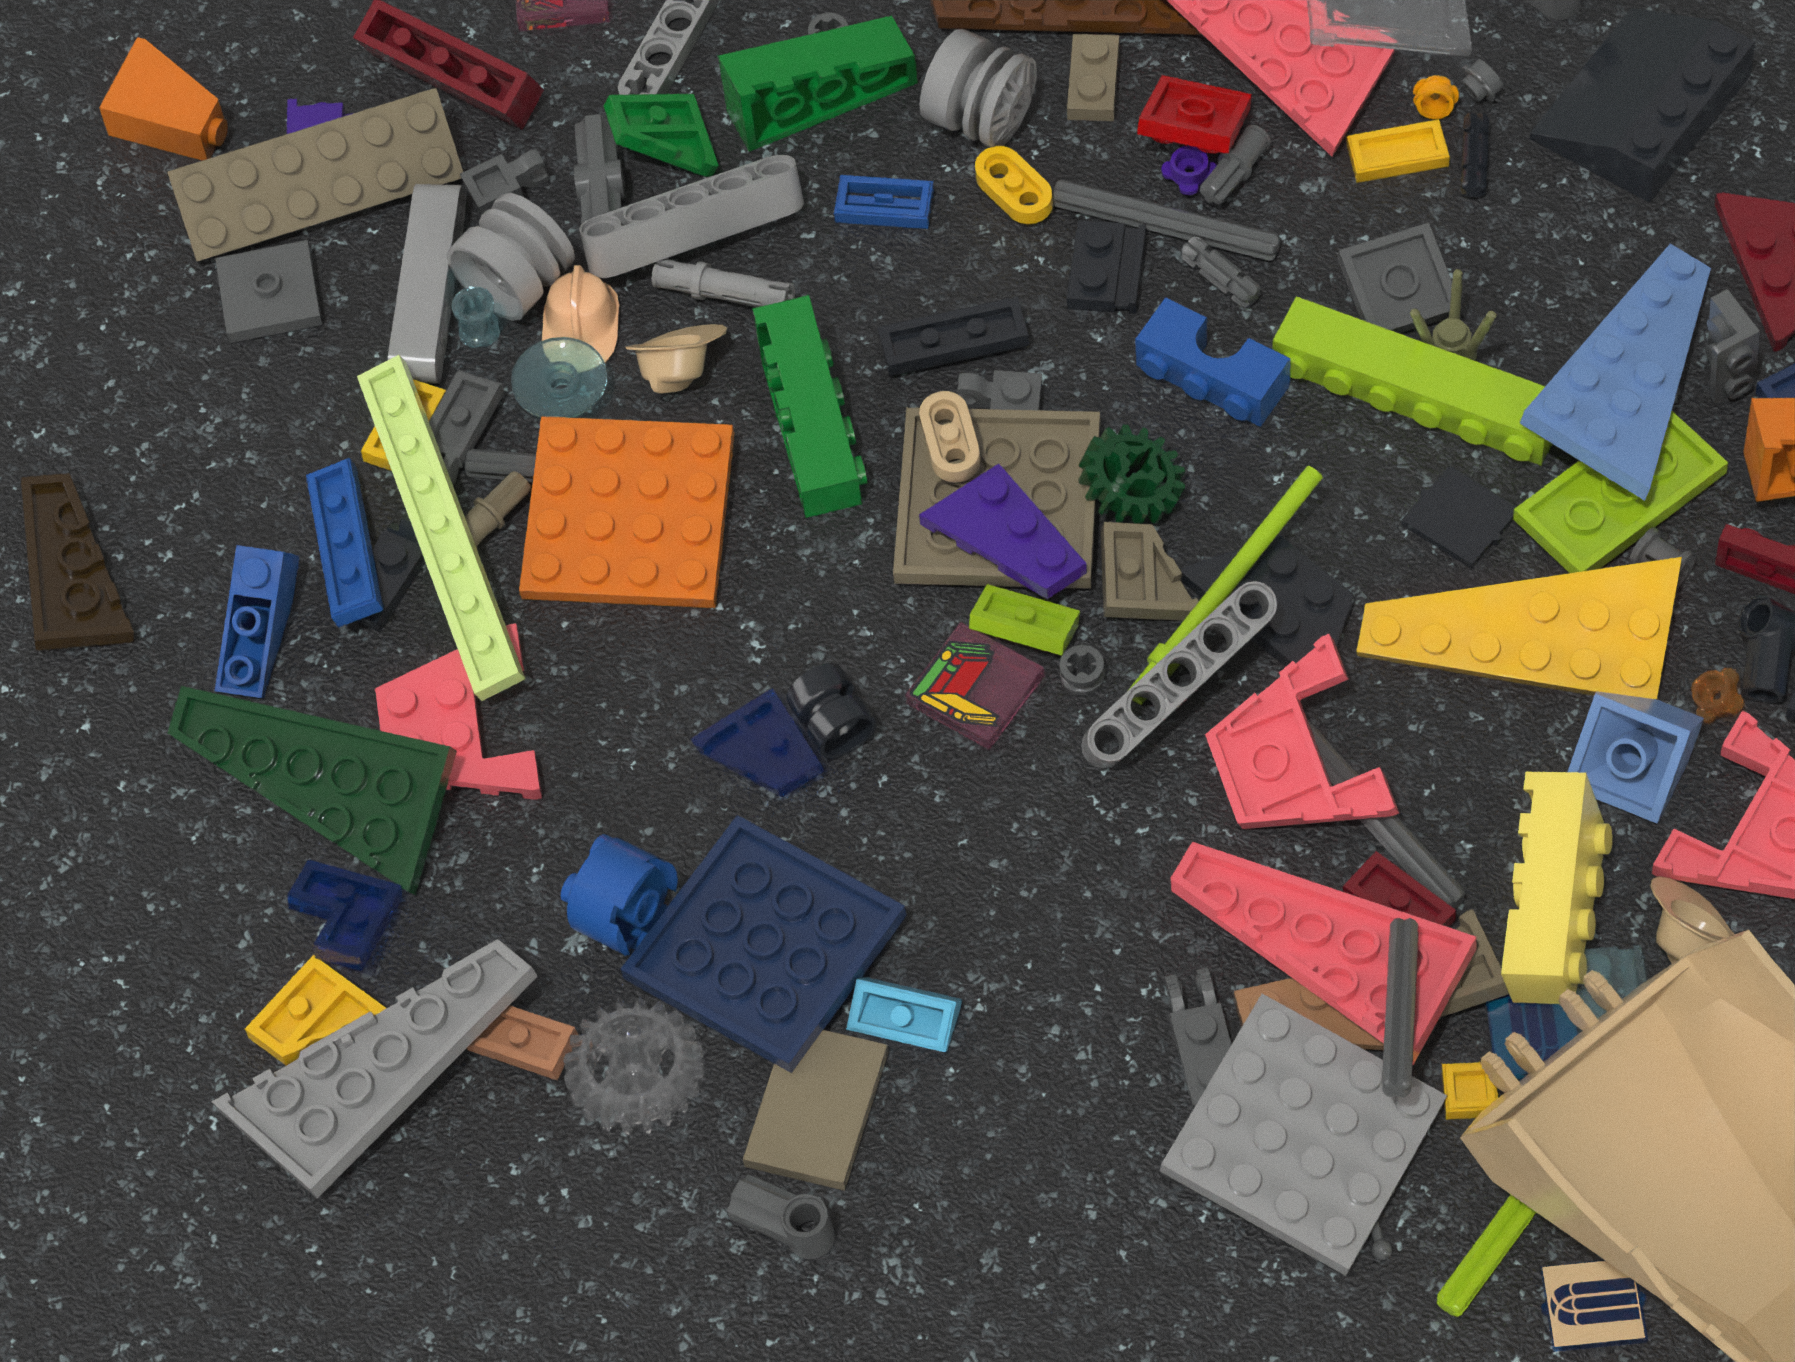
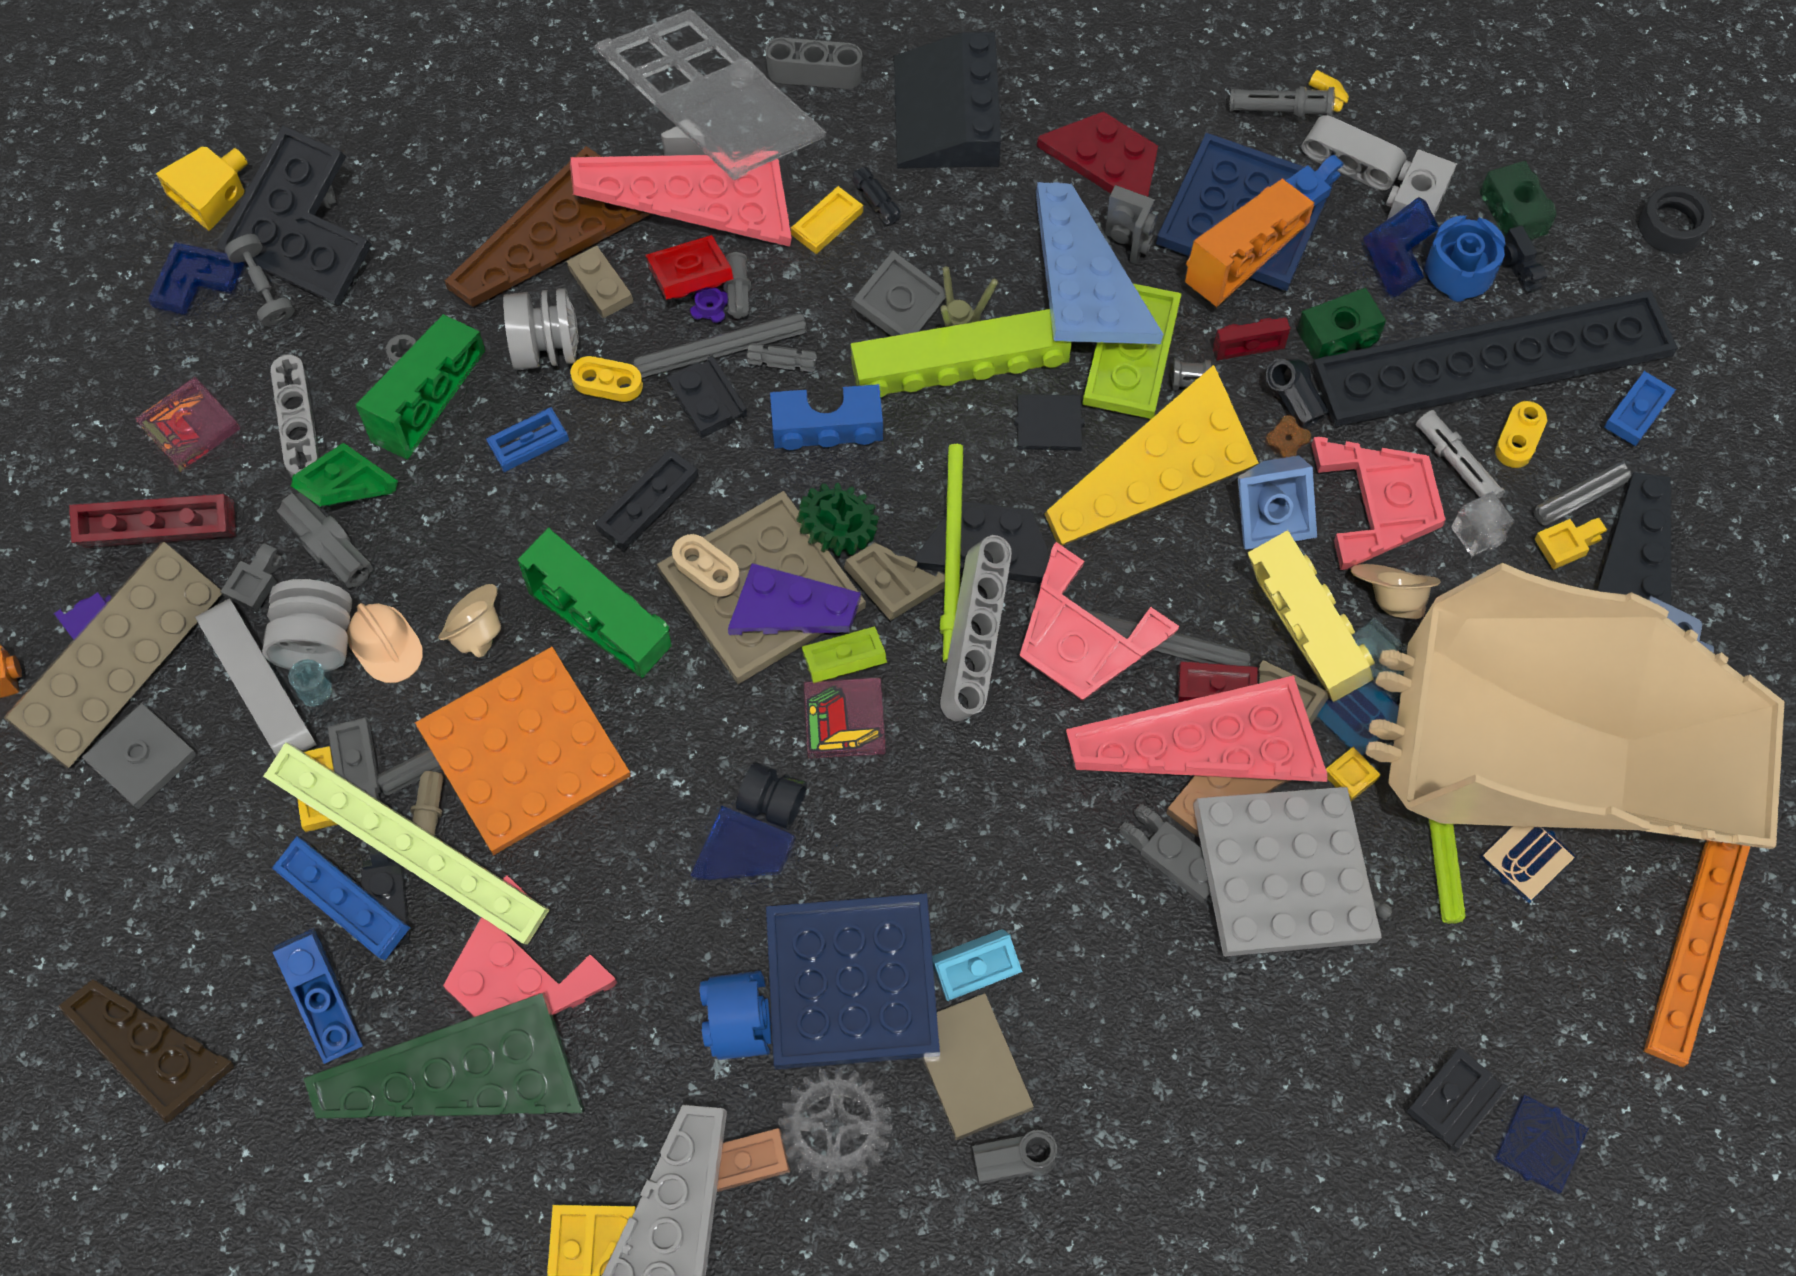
camera: 45 degrees left, 5 degrees up
(355, 909) = (551, 1147): clear blue plate -> none
(554, 364) = (400, 674): clear light blue dish -> none
(691, 216) = (410, 525): light grey beam -> none
(704, 282) = (465, 558): light grey pin -> none
(1006, 392) = (708, 515): dark grey plate -> none
(1082, 657) = (912, 671): dark grey bush -> none
(1400, 1008) = (1298, 751): dark grey axle -> none
(1435, 105) = (824, 173): light orange plate -> none
(1481, 81) = (844, 148): dark grey plate -> none

